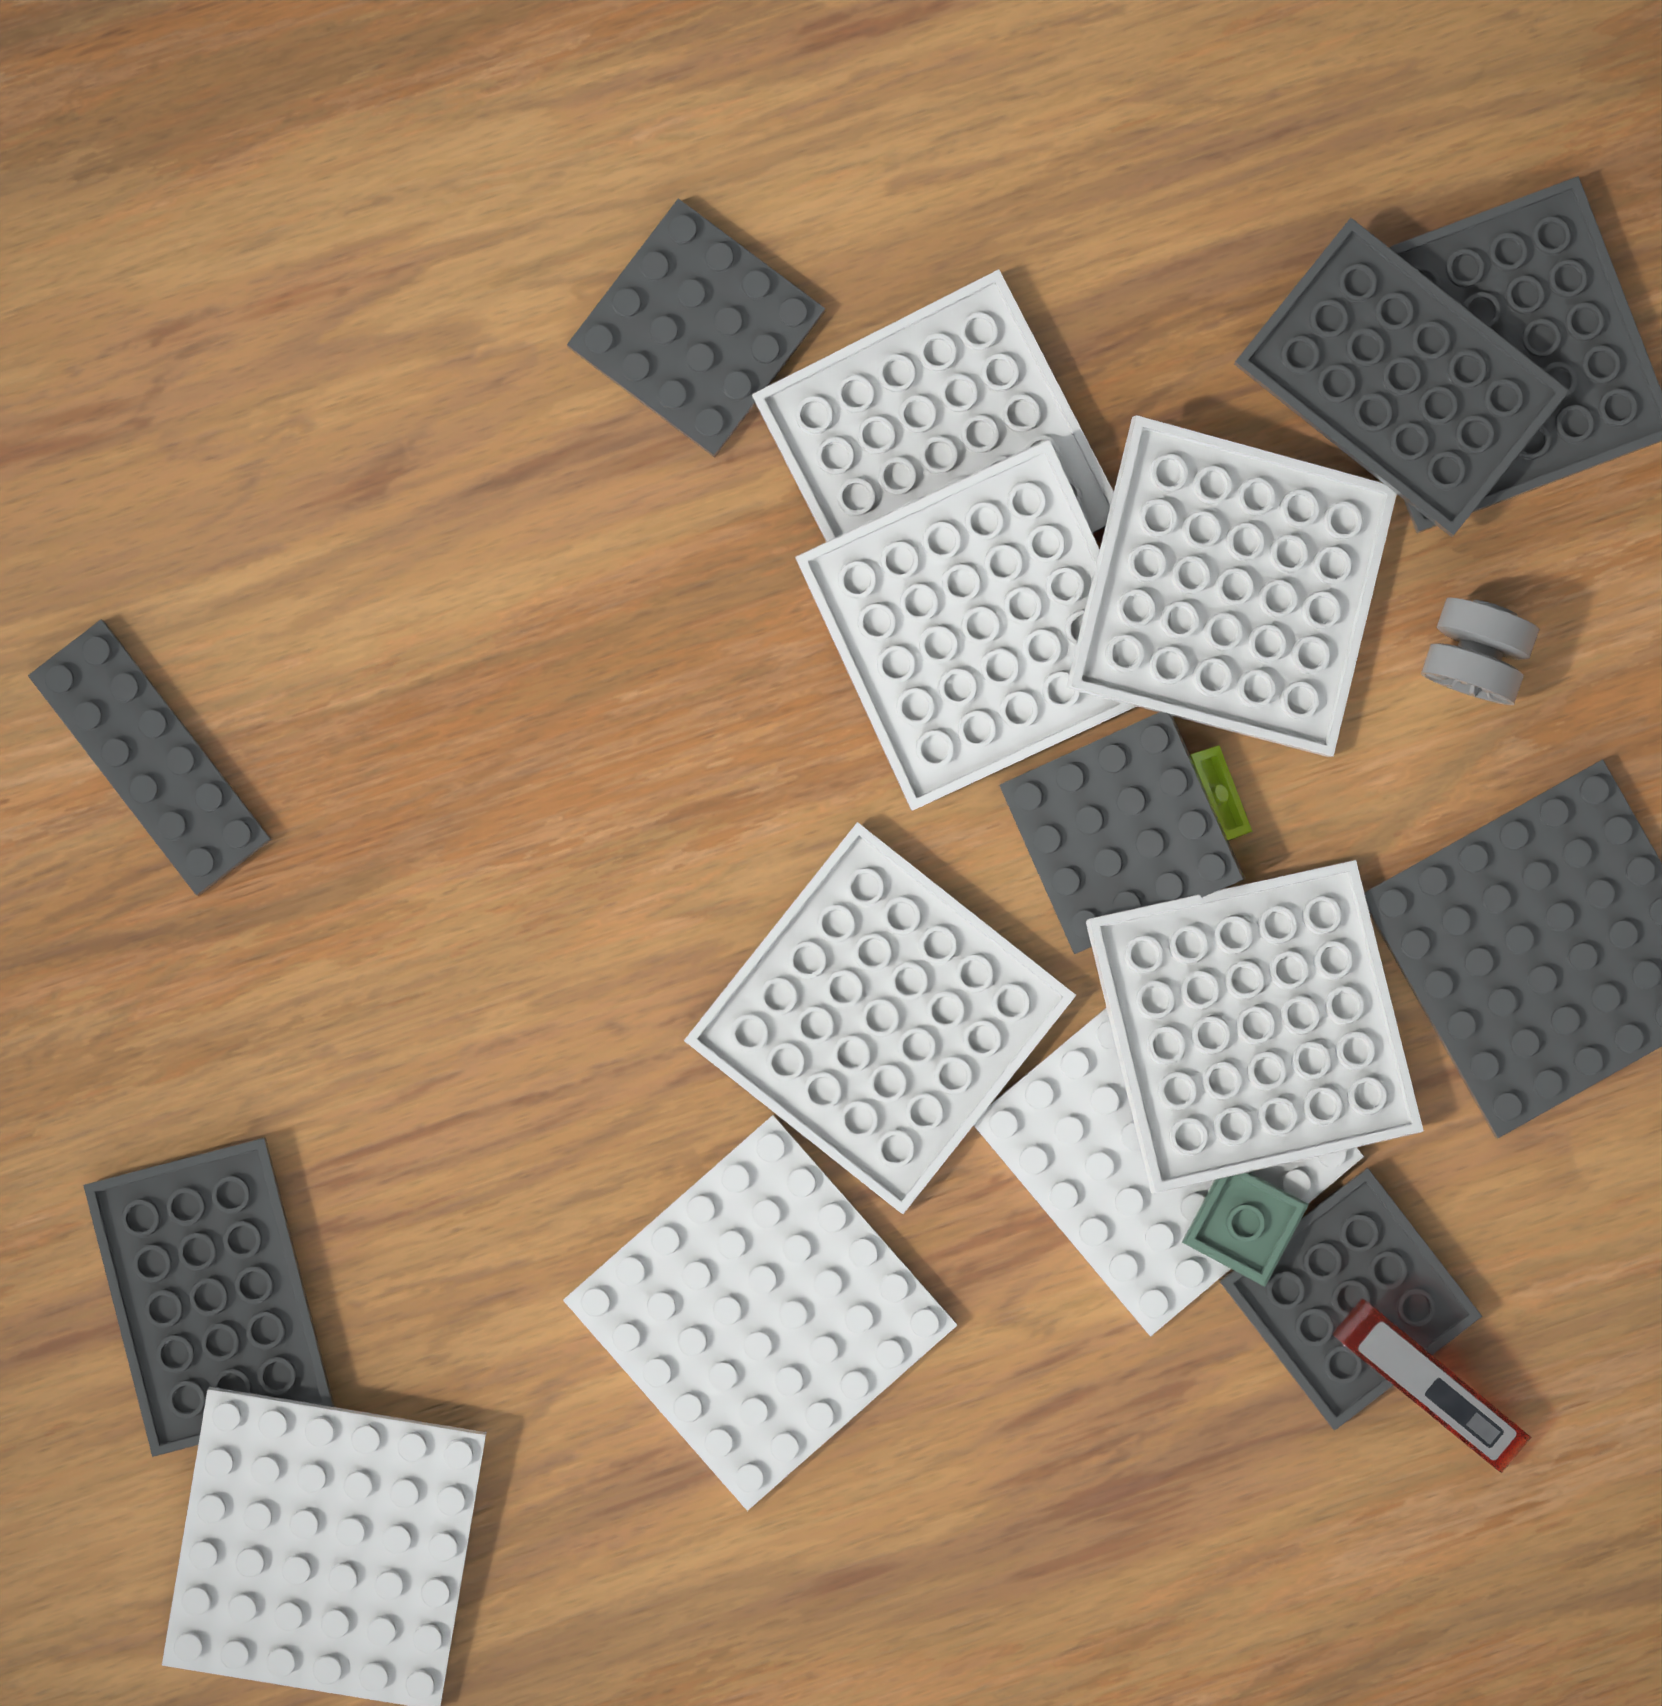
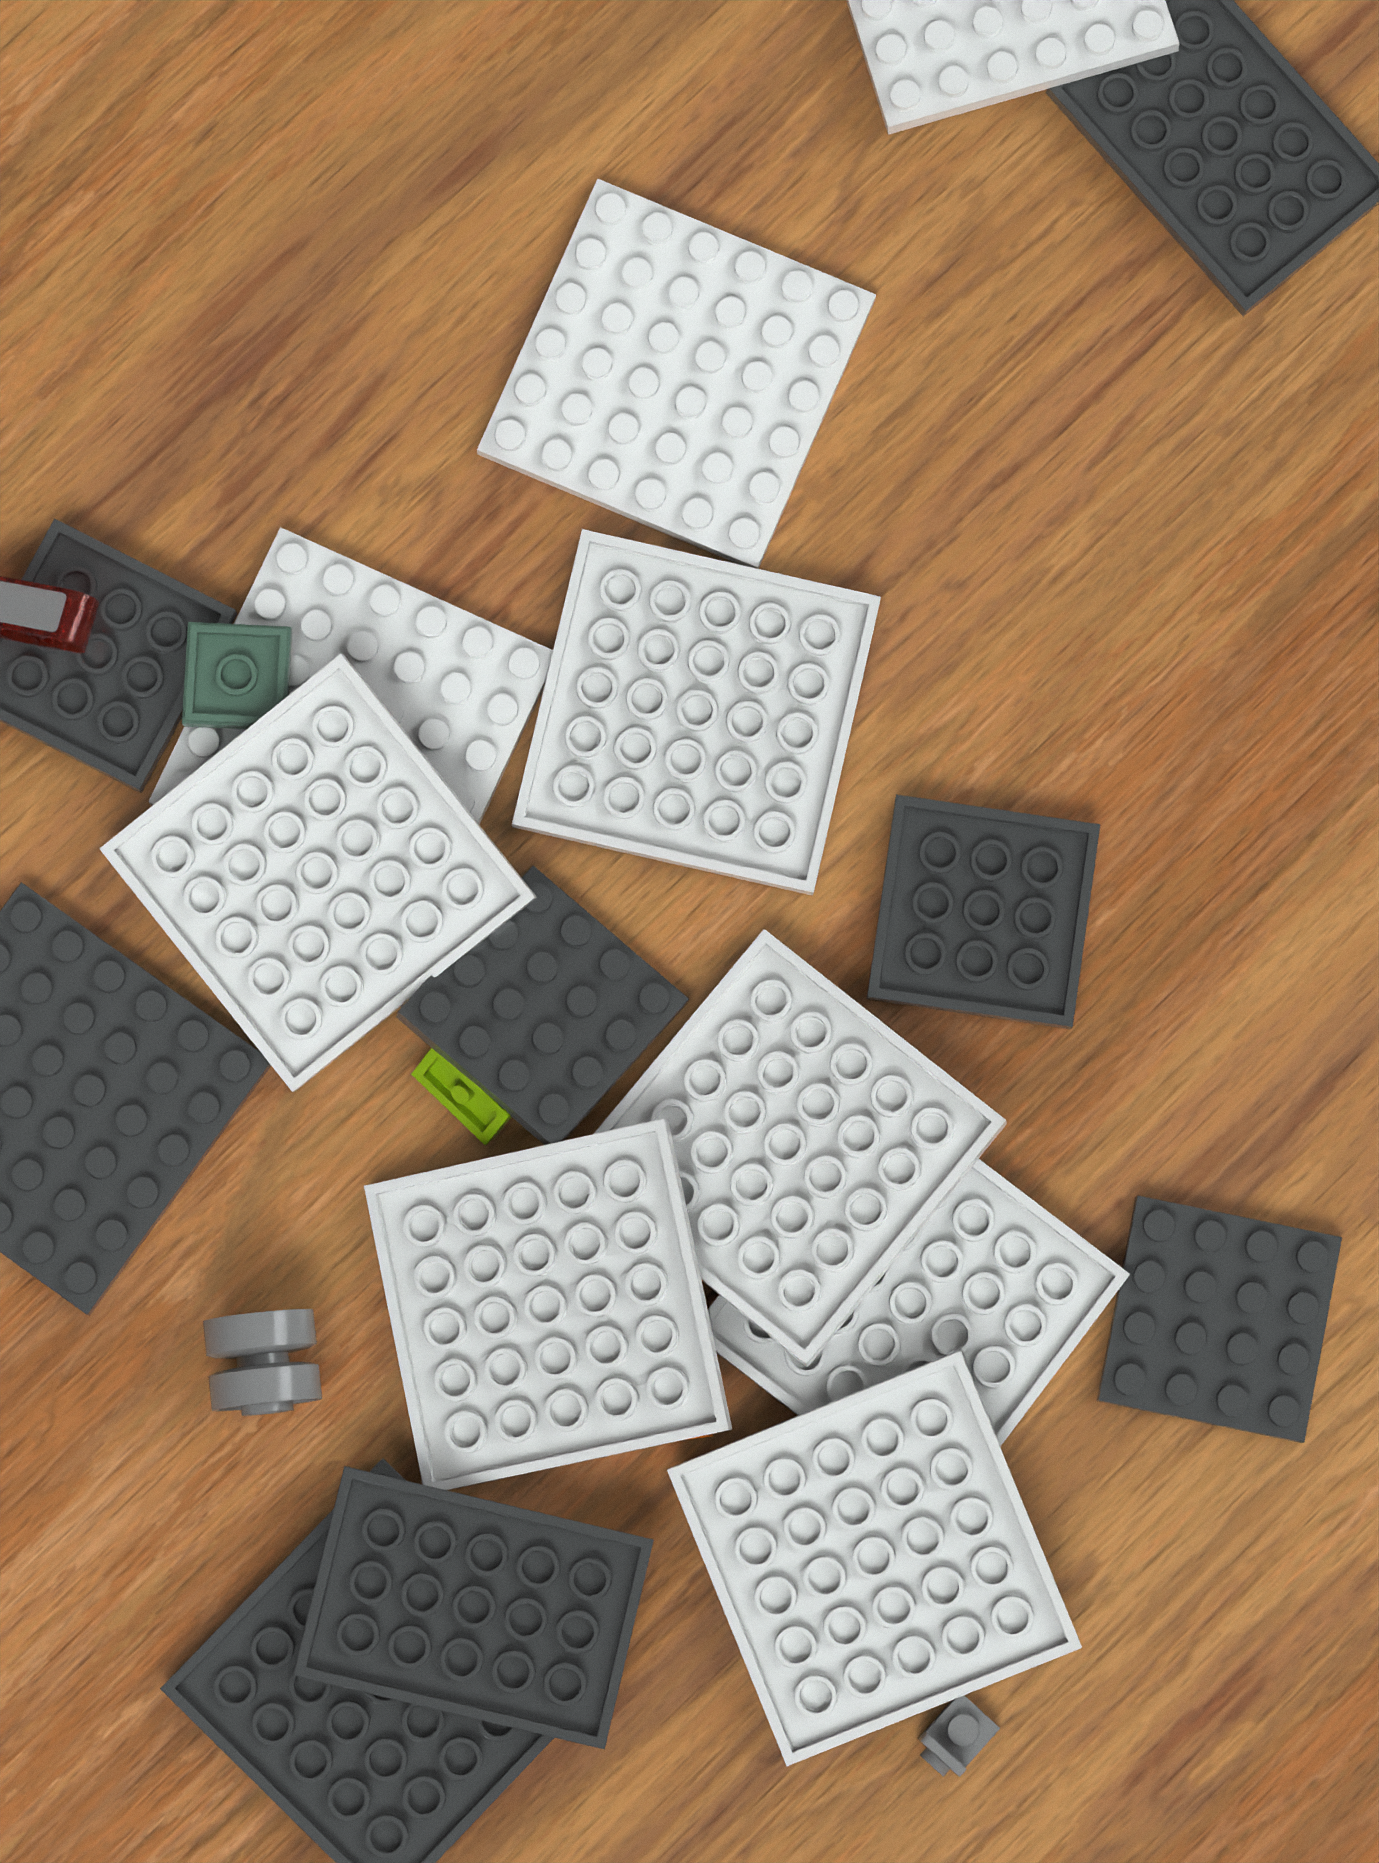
camera: 150 degrees right, 5 degrees down
(725, 742) = (983, 911): none -> dark grey plate
(1065, 101) = (956, 1736): none -> light grey bracket
(1065, 267) = (874, 1558): none -> white plate

